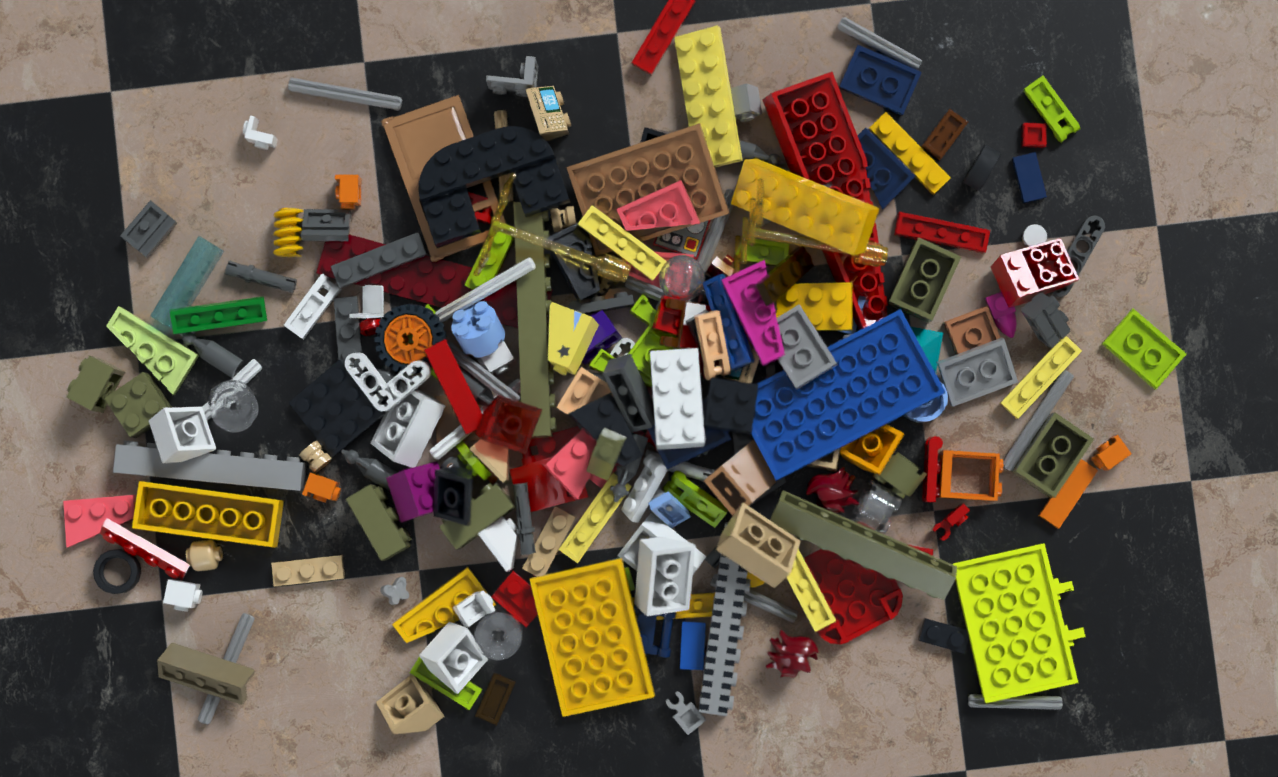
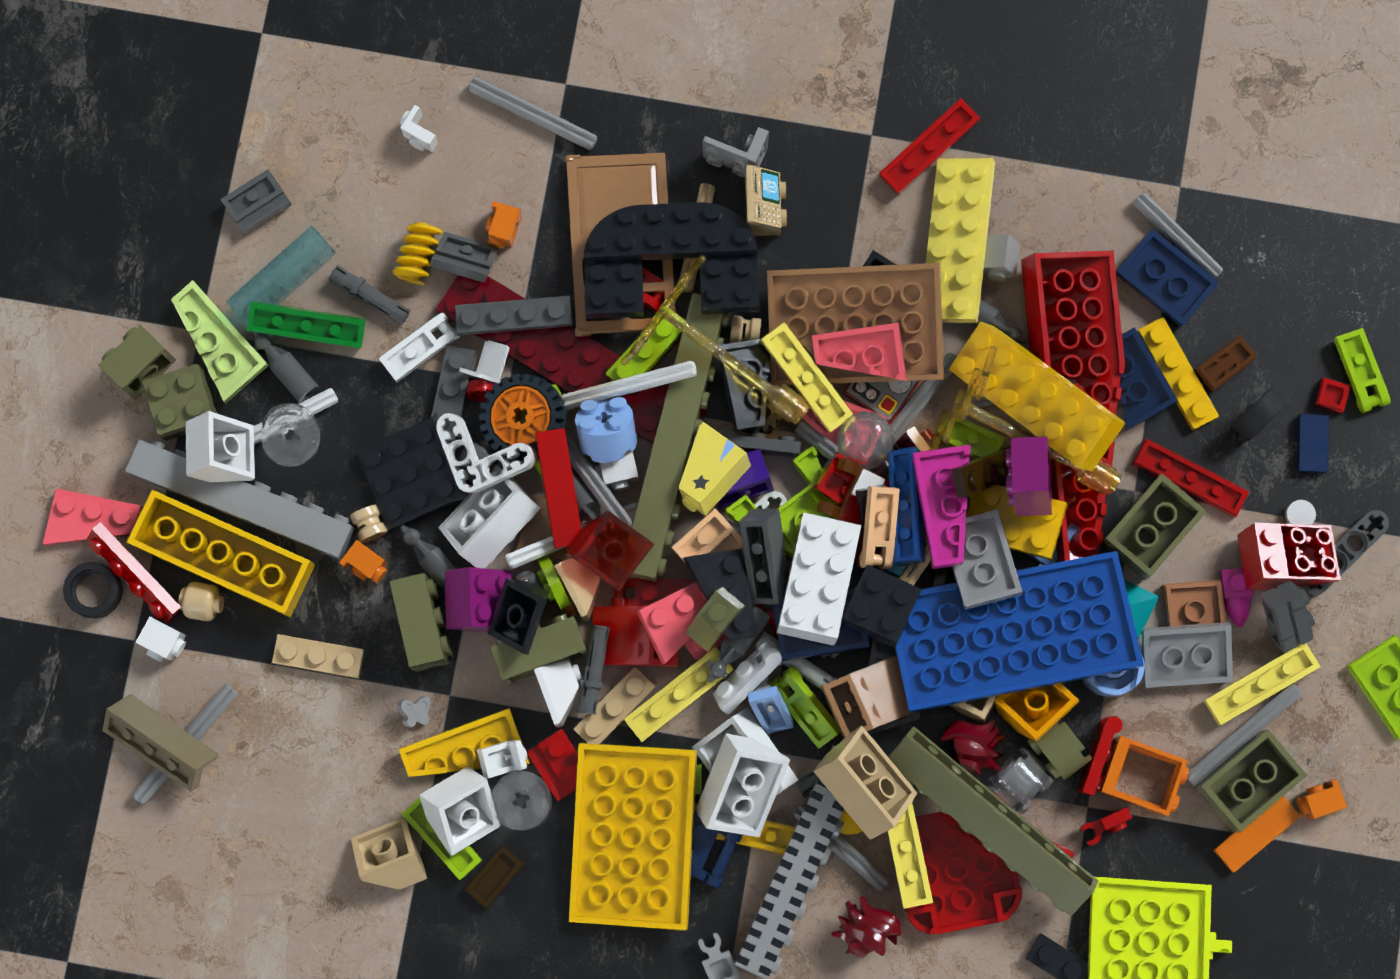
camera: 10 degrees right, 5 degrees down
(692, 645) = (750, 883): blue tile -> none
(817, 271) = (1029, 476): none -> magenta brick

